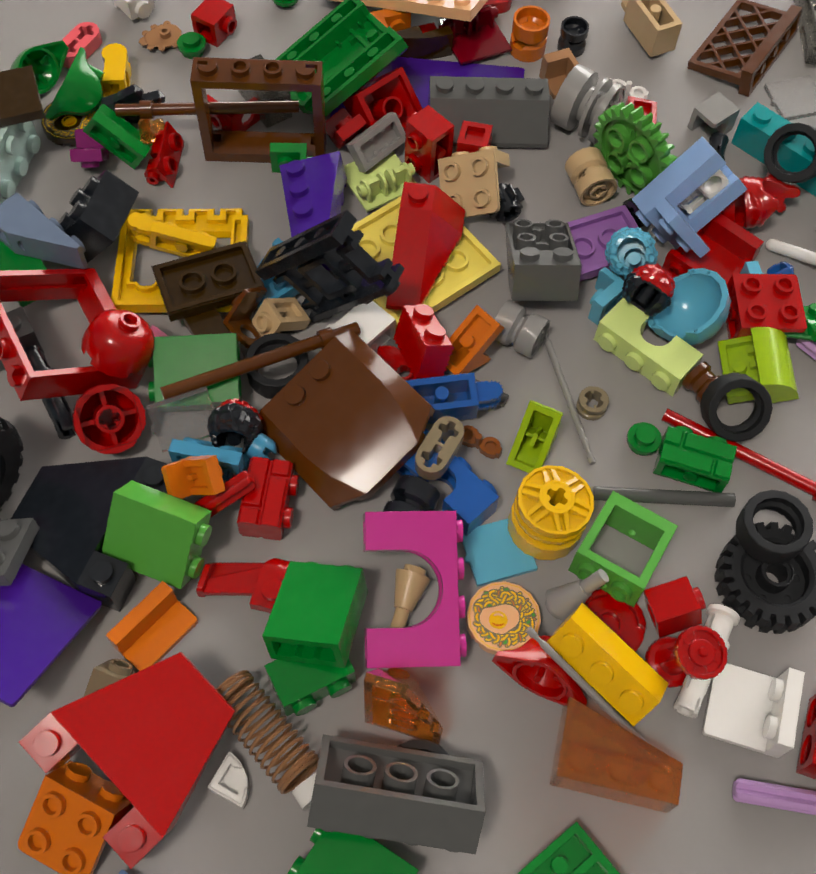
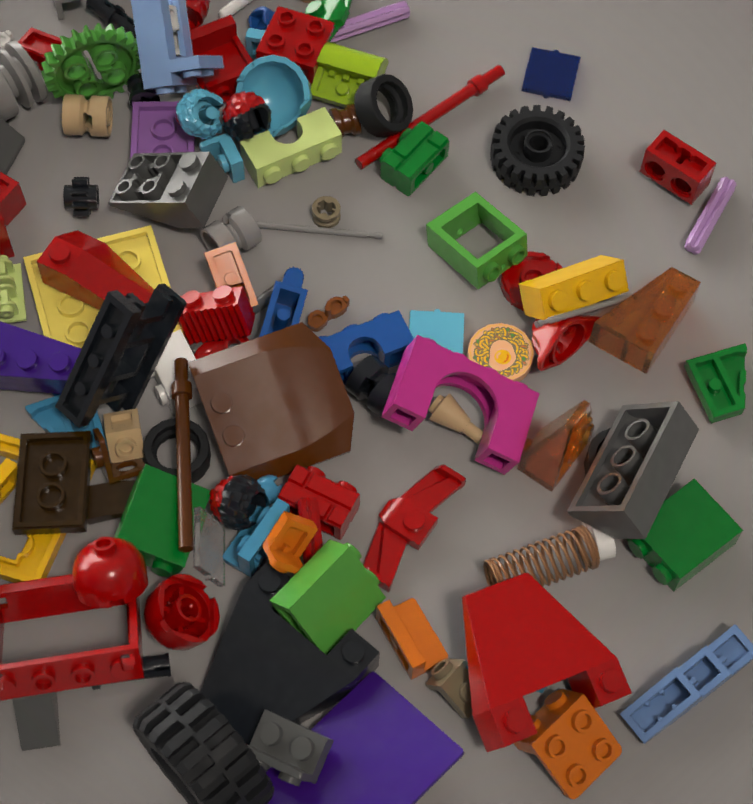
camera: 70 degrees left, 0 degrees up
(231, 781) = (578, 606): white tile -> none
(303, 684) = (502, 514): green brick -> none
(316, 614) = (459, 482): green brick -> none
(433, 444) = (340, 333): dark tan beam -> none
(473, 179) = (47, 209): tan bracket -> none
(534, 437) = (346, 266): lime slope -> none
(546, 529) = (427, 278): yellow wheel -> none
(566, 598) = (505, 295): light grey cone -> none
(644, 438) = (377, 188): green plate -> none
(668, 496) = (435, 197): dark grey bar -> none
(674, 606) = (541, 224): red brick -> none
(690, 698) = (577, 214): white pin -> none
(694, 653) = (598, 214): red hose -> none
(754, 709) = (638, 206): white bracket -> none
(787, 506) = (506, 105): black tyre -> none

